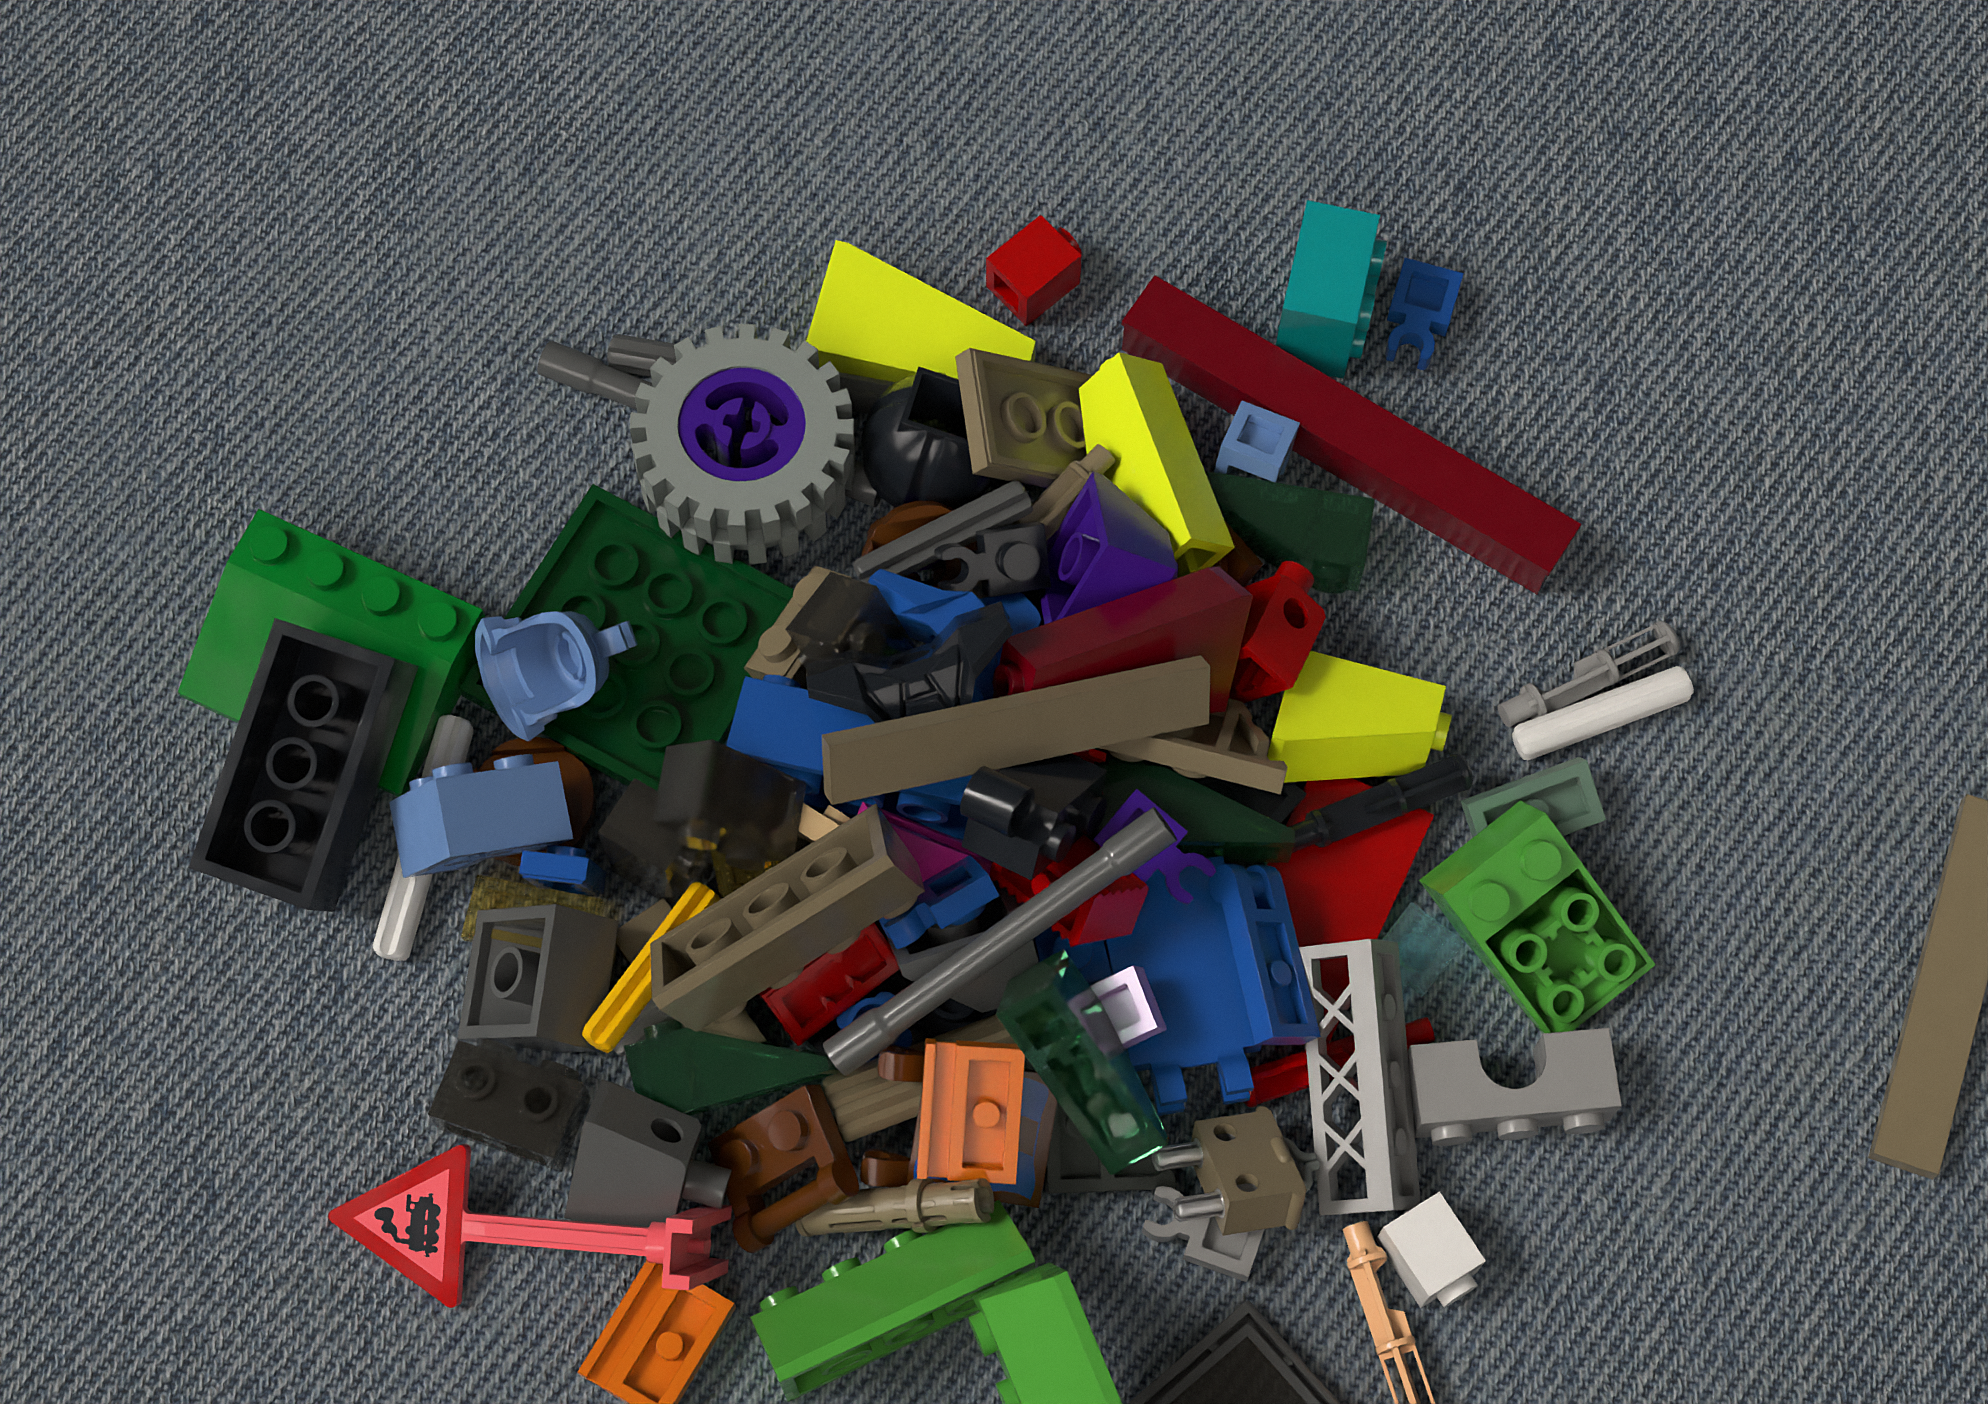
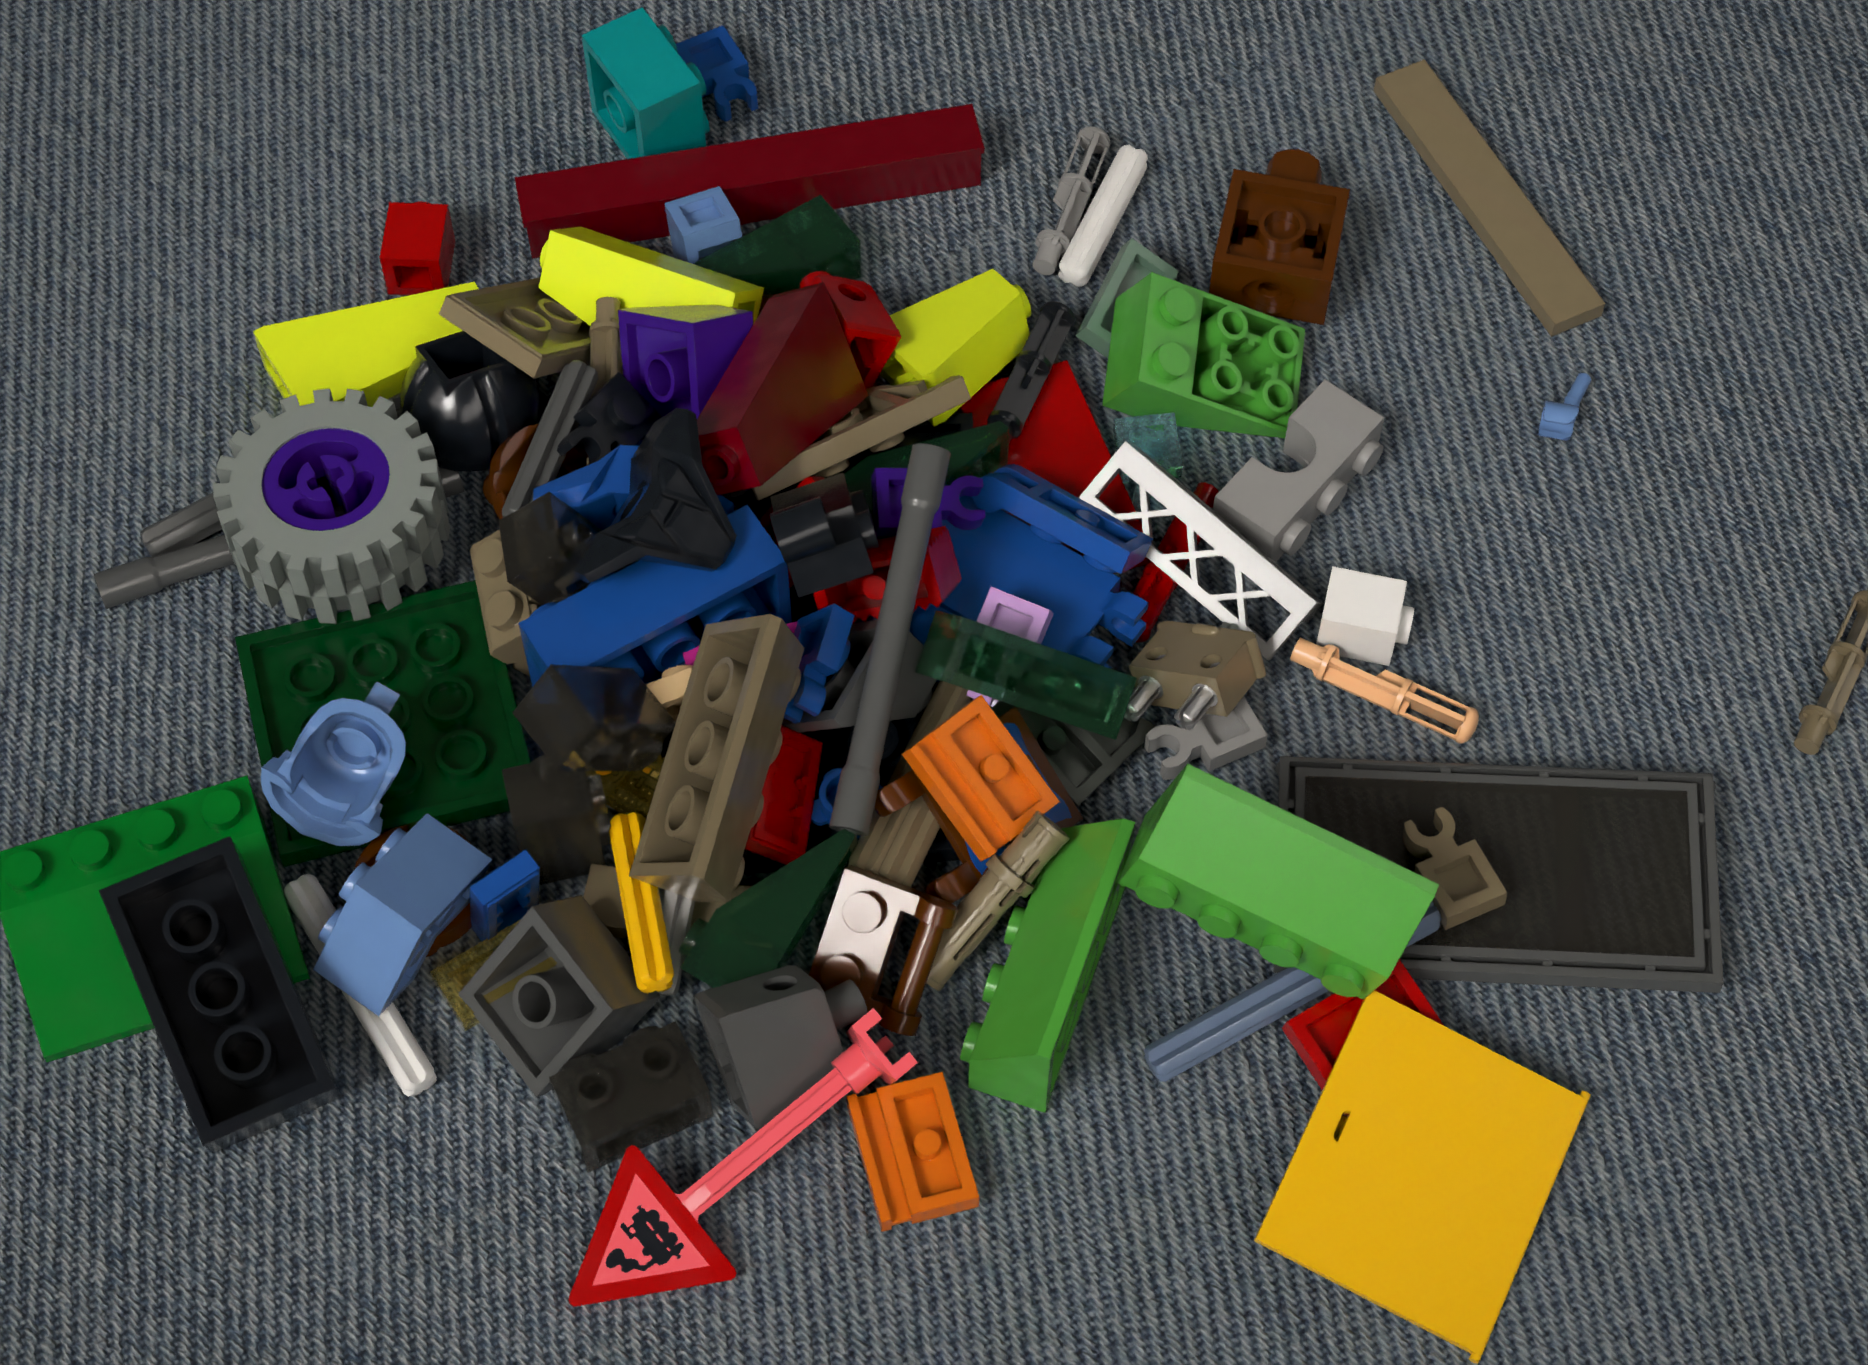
camera: 45 degrees left, 10 degrees down
(1015, 729) = (757, 483): dark tan tile -> none
(1718, 871) = (1280, 239): none -> reddish brown brick
(1786, 1237) = (1559, 418): none -> medium blue hand

